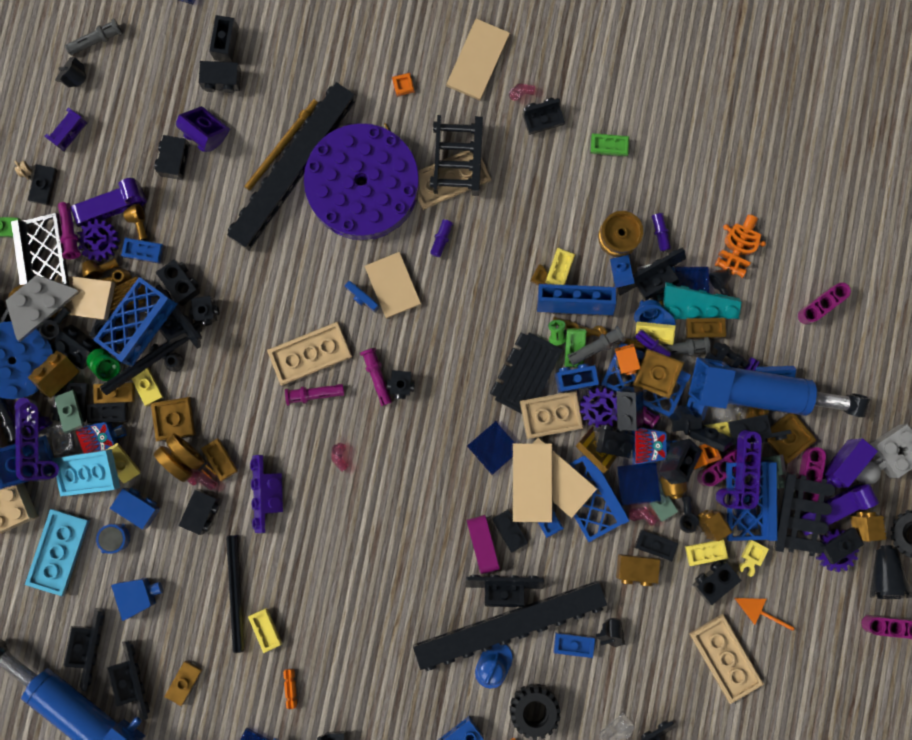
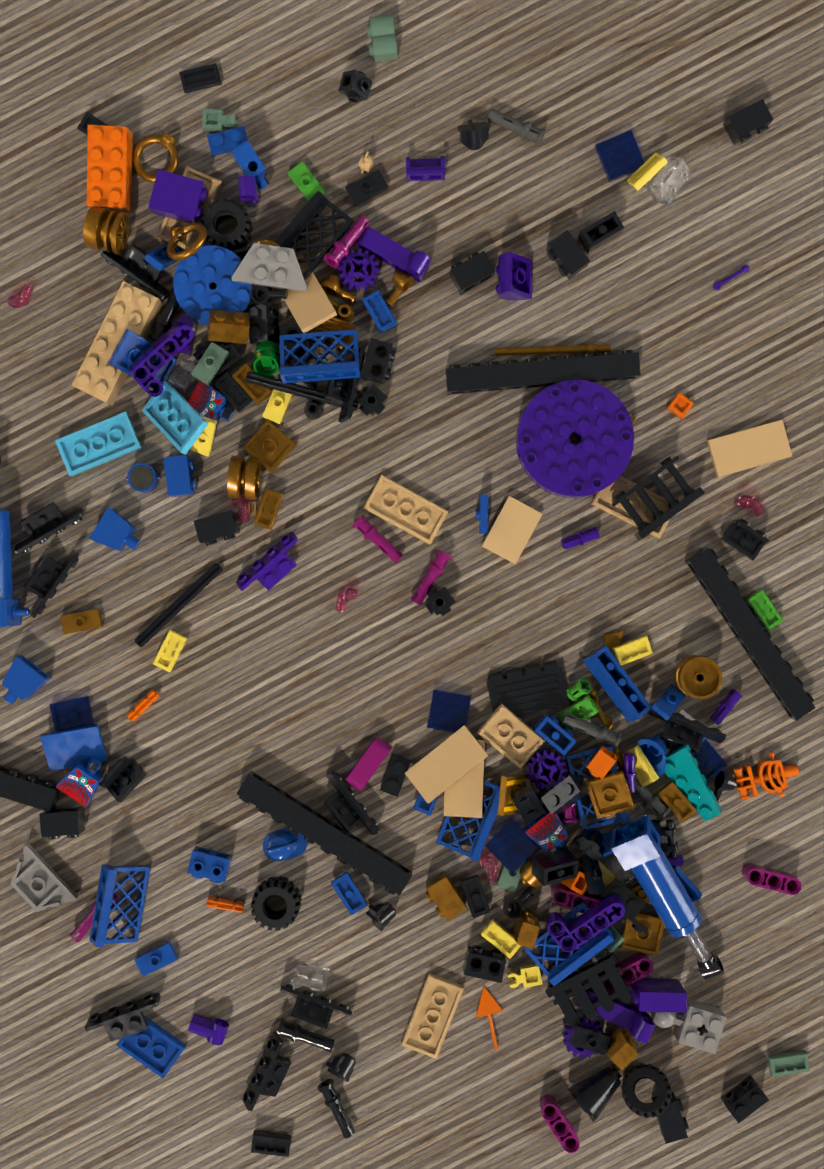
camera: 55 degrees right, 5 degrees up
(619, 169) = (750, 633): none -> black brick

